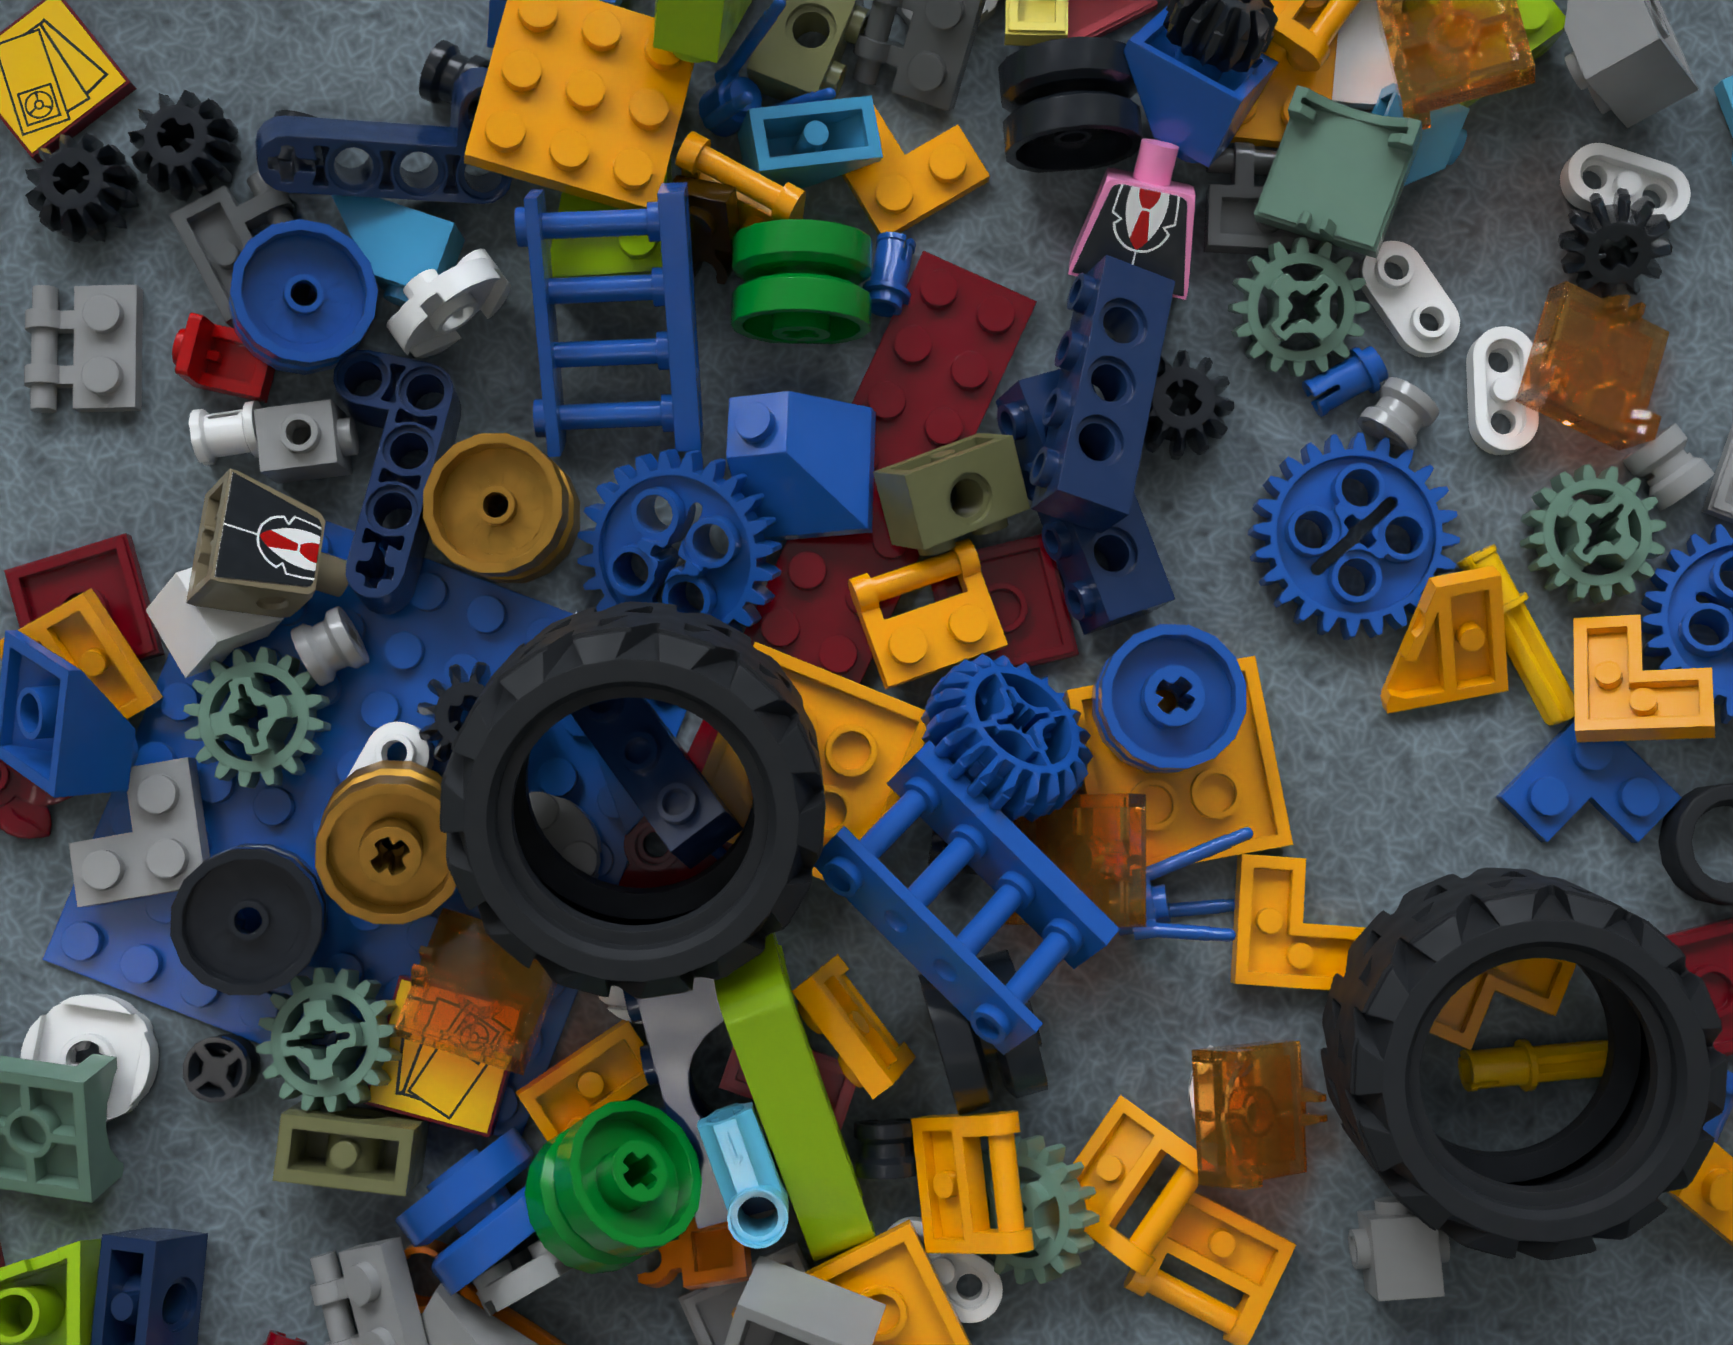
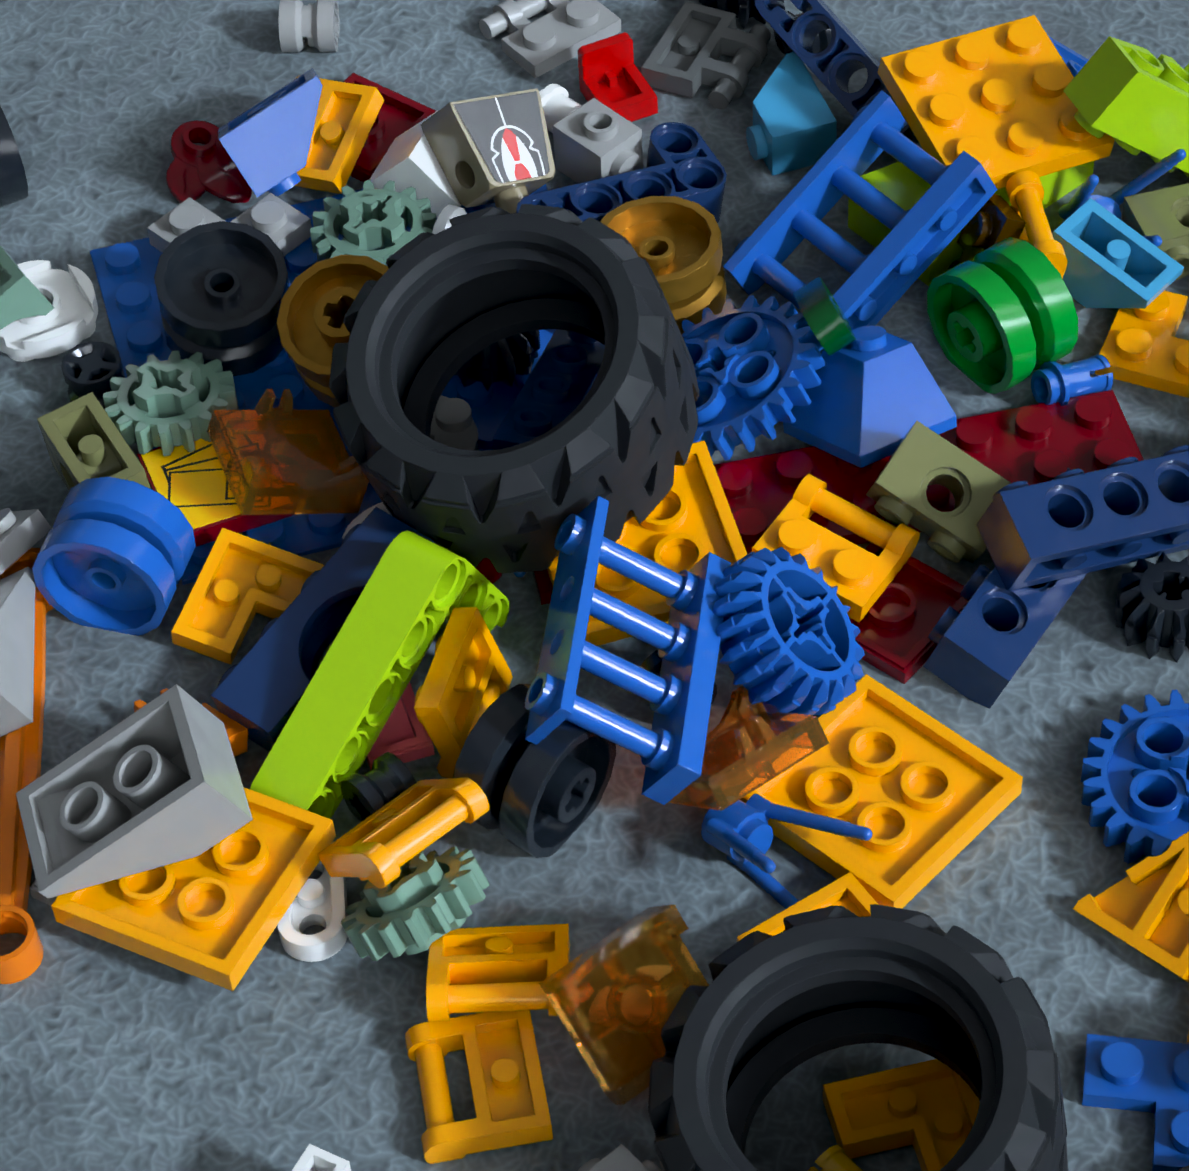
camera: 55 degrees right, 35 degrees down
(307, 258) = (698, 70): blue wheel -> none
(446, 303) = (771, 127): white plate -> none
(517, 1277) = (98, 618): light grey plate -> none
(613, 1187) = (202, 592): green wheel -> none
(712, 444) = (824, 316): none -> dark green beam
(745, 1171) = (279, 671): medium azure piece -> none
(1206, 691) = (919, 711): blue wheel -> none

